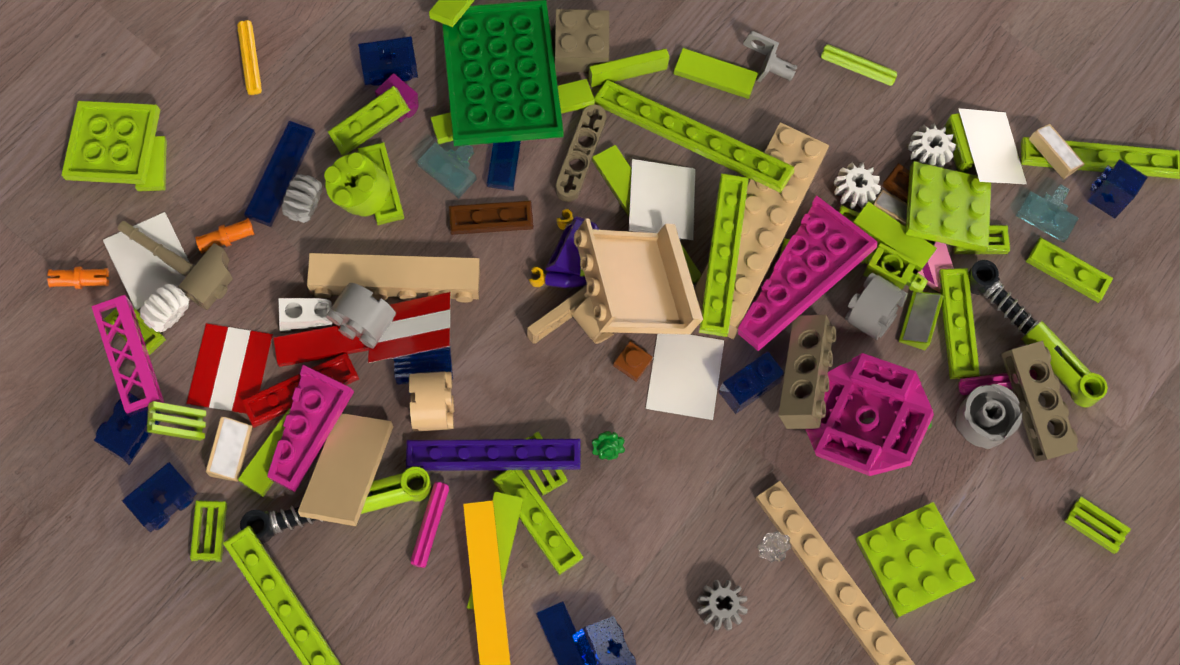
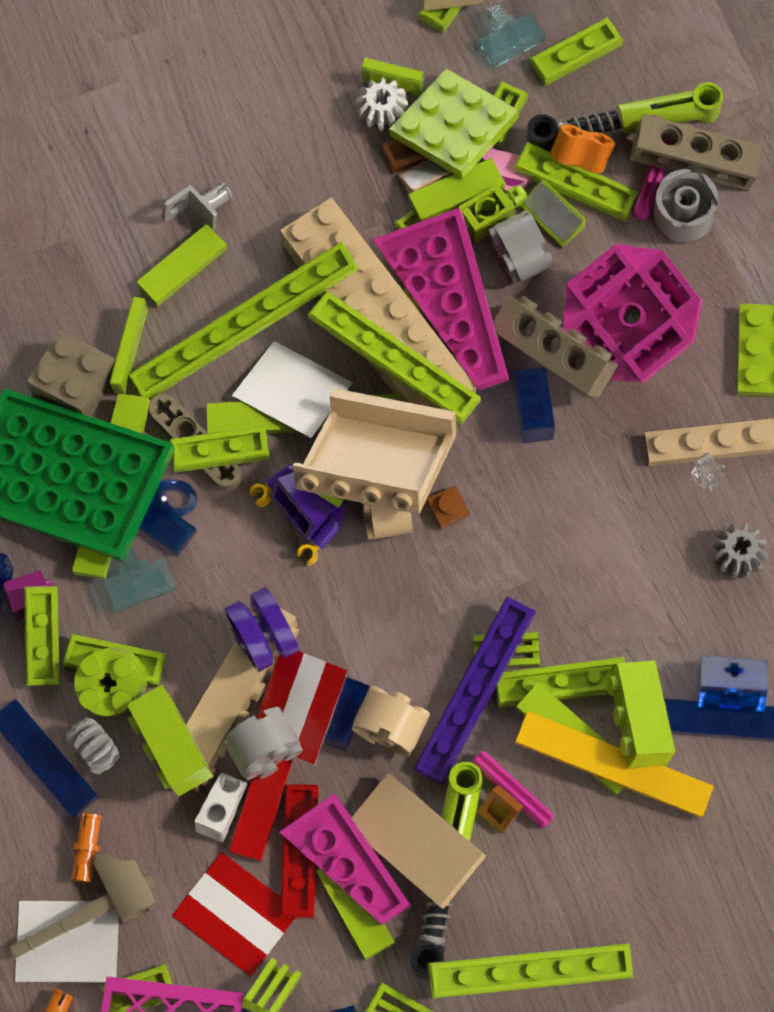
camera: 50 degrees left, 0 degrees up
(164, 308) = (138, 945): white gear -> none
(229, 449) = (327, 952): flat silver slope -> none
(328, 246) = (168, 741): none -> lime brick
(407, 522) = (500, 809): none -> dark orange plate
(446, 264) = (265, 627): none -> dark purple wheel
(491, 217) = (215, 568): reddish brown tile -> none
(533, 148) = (161, 505): none -> clear blue piece
(537, 591) = (641, 714): none -> lime brick
(555, 317) = (362, 548): tan tile -> none
(583, 171) = (220, 449): none -> lime tile
(608, 445) = (524, 575): green plant -> none
(685, 375) = (490, 466): white sticker -> none
(859, 64) = (252, 123): lime axle -> none
(866, 182) = (383, 205): white gear -> none
(987, 312) = (582, 148): none -> orange axle
(992, 146) = (413, 48): white sticker -> none

